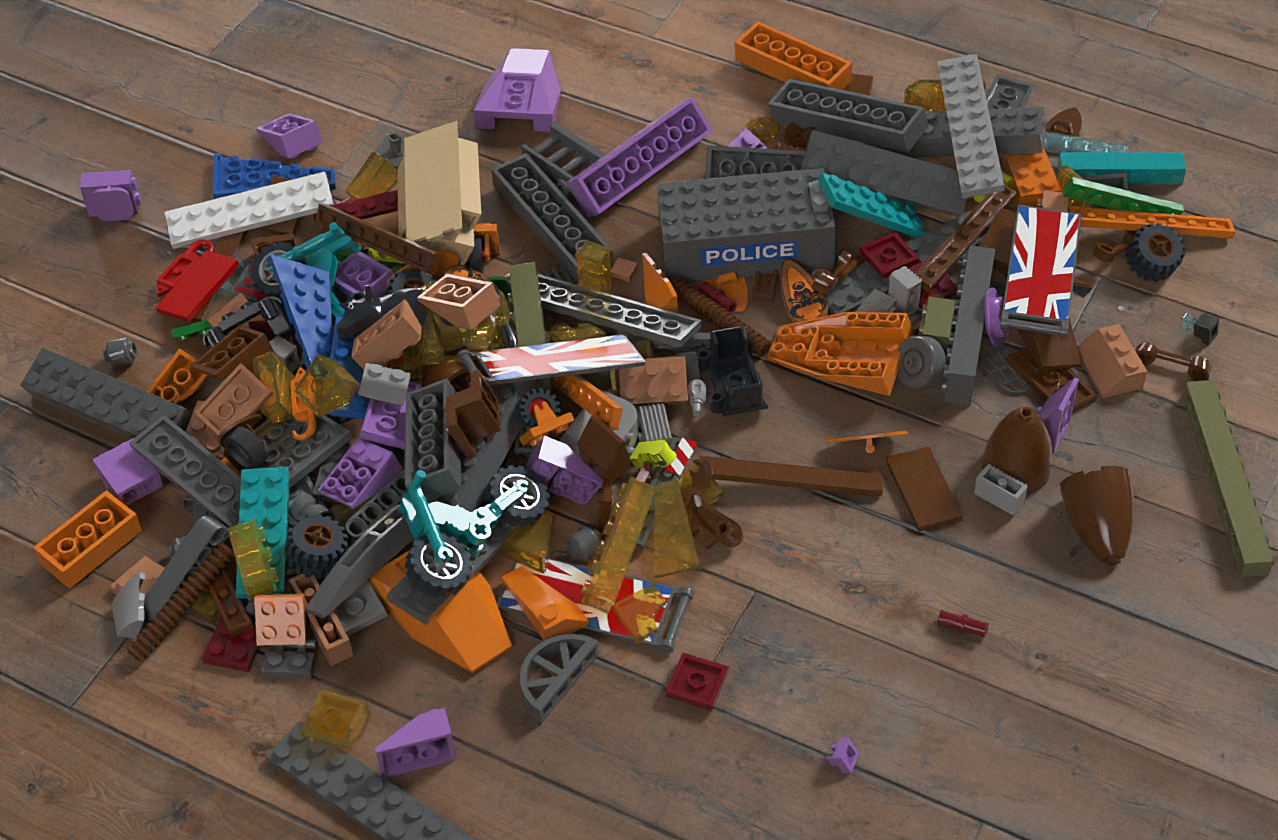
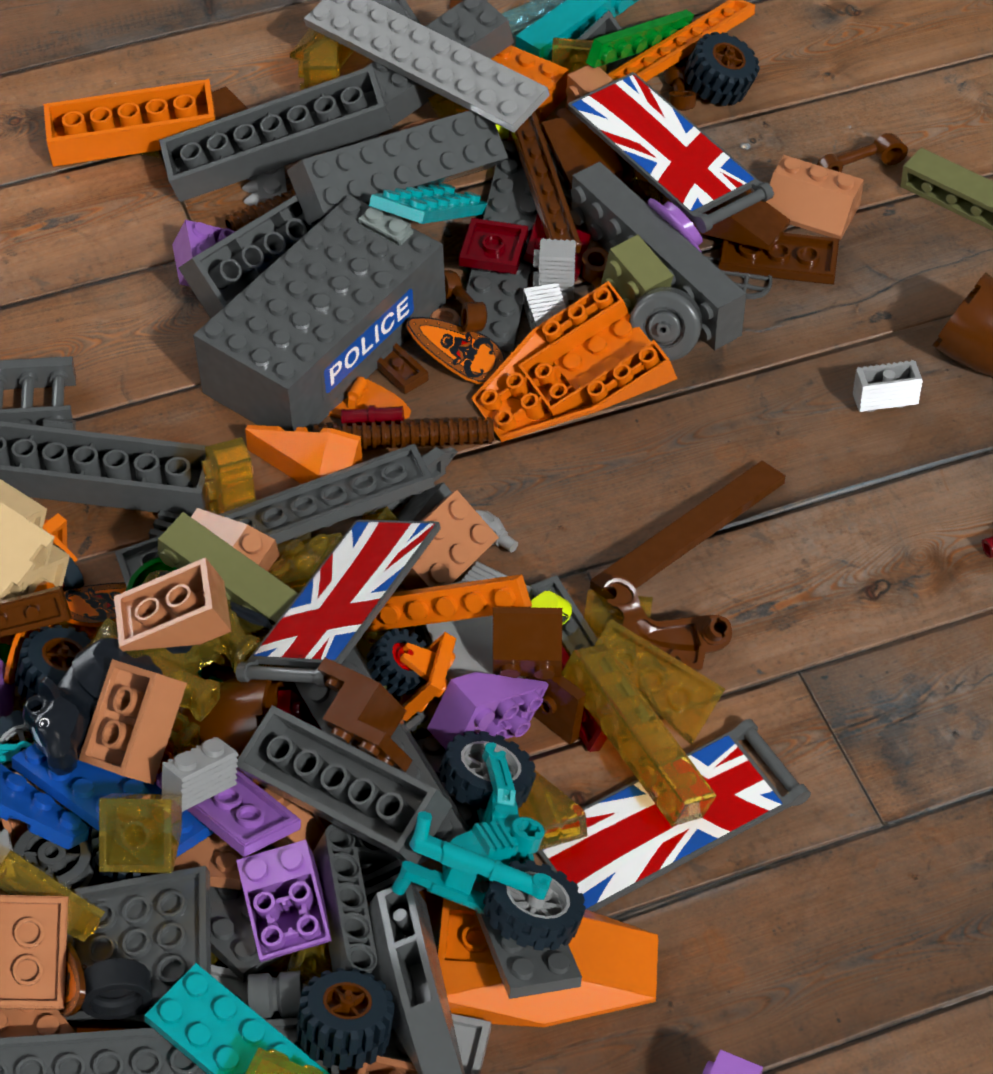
camera: 50 degrees left, 0 degrees up
(301, 411) = (109, 888): orange plate -> none
(543, 605) = (638, 866): orange wedge -> none
(554, 300) = (241, 536): none -> nougat slope
(557, 687) = (774, 968): dark grey window -> none
(583, 543) = (585, 769): dark grey head -> none
(639, 157) = (103, 333): medium lavender brick -> none
(639, 612) = (737, 785): tile -> none
(683, 453) = (558, 586): sticker -> none
(697, 681) = (875, 802): dark red plate -> none
(732, 373) = (503, 481): black container -> none
(770, 127) = (171, 224): clear yellow gear -> none
(795, 136) = (237, 196): reddish brown bracket -> none
(850, 267) = (467, 281): reddish brown bar -> none
(869, 448) = (710, 431): orange shield -> none
(923, 489) = (812, 444): reddish brown tile -> none
(1021, 448) = (858, 330): reddish brown cylinder -> none
(1058, 411) = (847, 279): medium lavender slope -> none
(1205, 327) = (845, 110): pearl dark grey piece -> none

